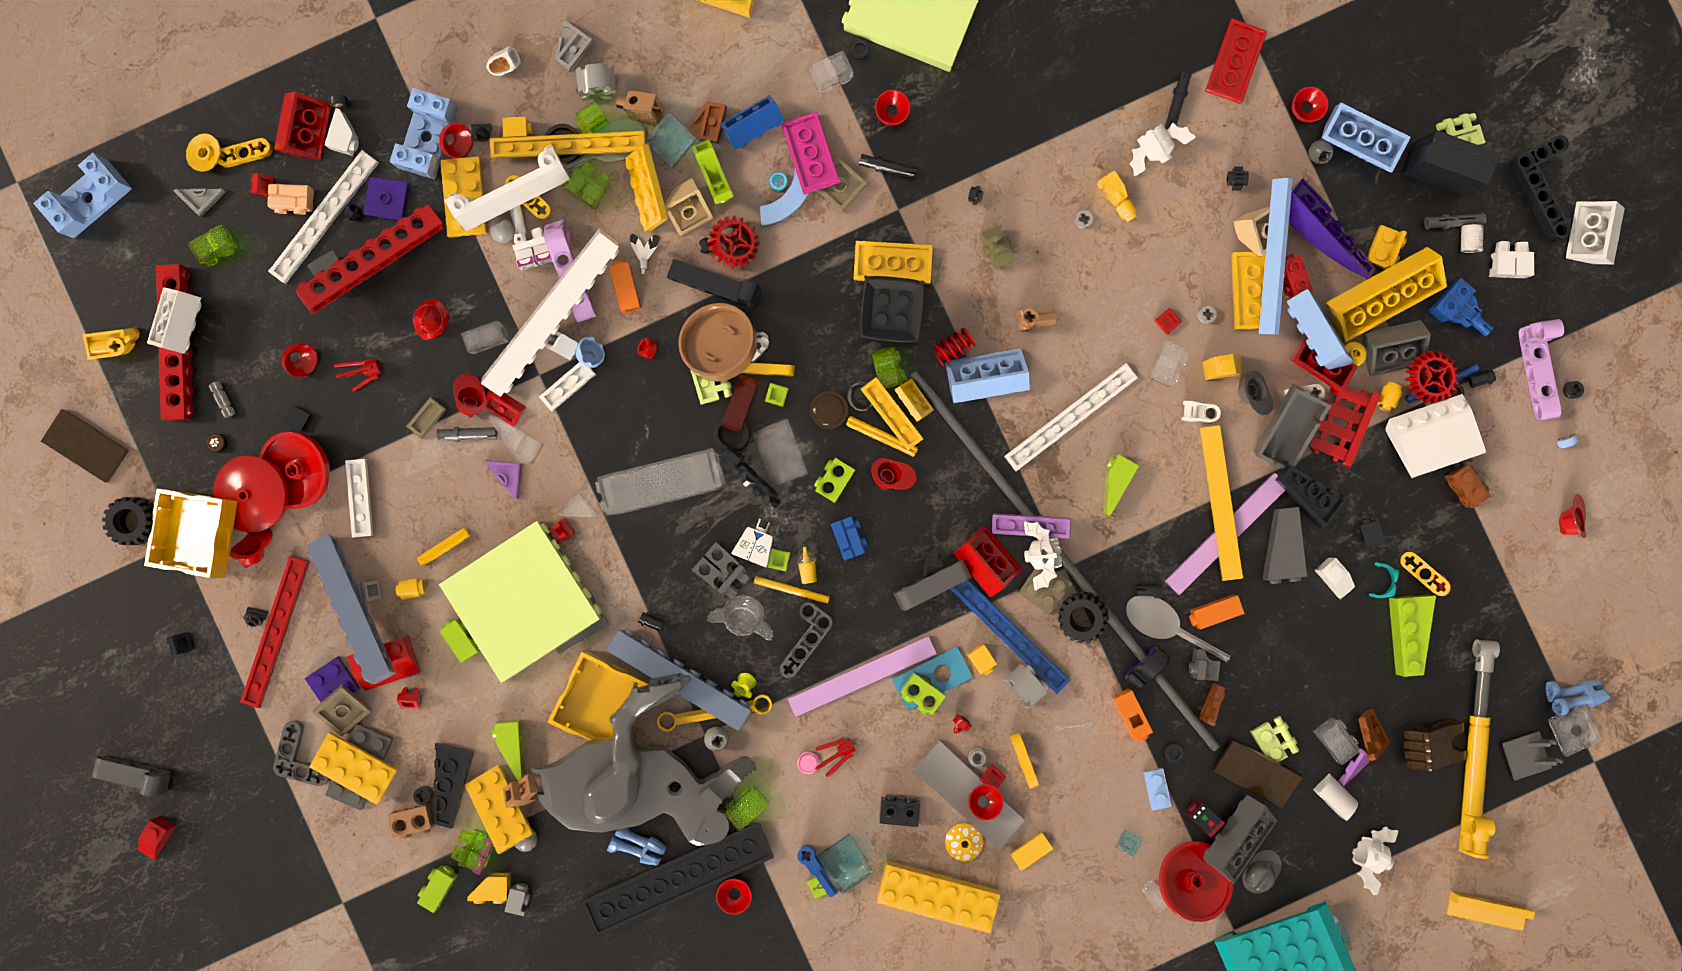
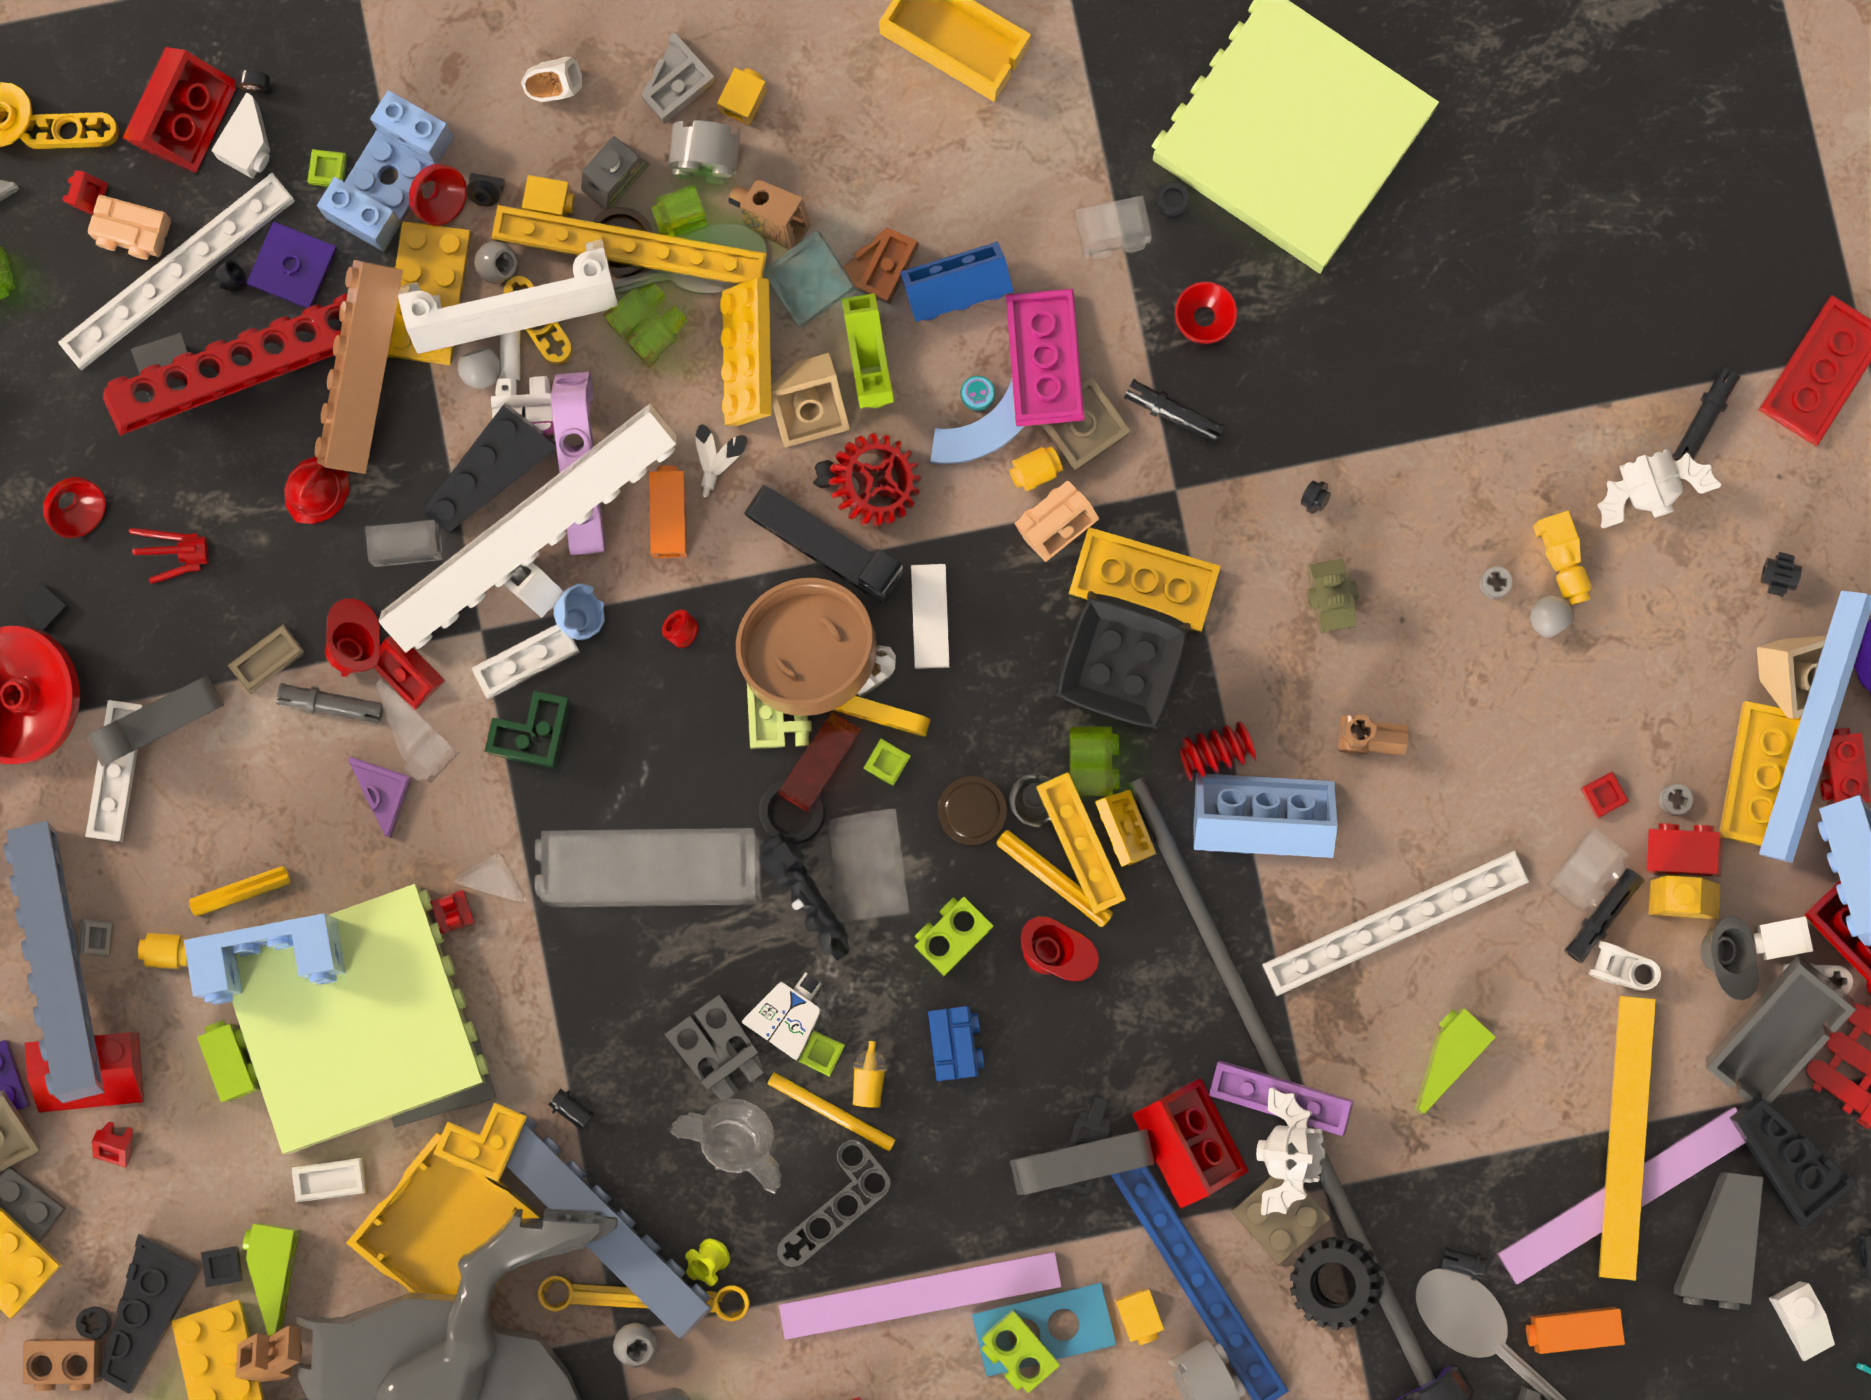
camera: 15 degrees right, 5 degrees down
(373, 466) = (154, 720): none -> dark grey beam
(389, 139) = (326, 166): none -> lime tile
(435, 245) = (358, 367): none -> medium nougat brick
(438, 590) = (215, 965): none -> light blue plate
(484, 749) = (222, 1266): none -> black plate
(497, 170) = (495, 262): none -> light grey piece
(522, 281) = (494, 461): none -> black wing
(530, 690) = (329, 1180): none -> white tile
(548, 104) = (612, 172): none -> dark grey torso
(585, 424) = (538, 740): none -> dark green brick
(610, 46) = (742, 95): none -> yellow brick
(610, 656) = (485, 1152): none -> yellow tile
(781, 309) = (930, 616): none -> white tile
(819, 215) = (1035, 468): none -> yellow brick
(837, 241) = (1056, 520): none -> light nougat brick
(1117, 230) = (1551, 615): none -> light grey piece
(1178, 394) = (1598, 923): none -> black pin
(1219, 341) = (1684, 851): none -> red brick
(1282, 376) = (1782, 938): none -> white slope

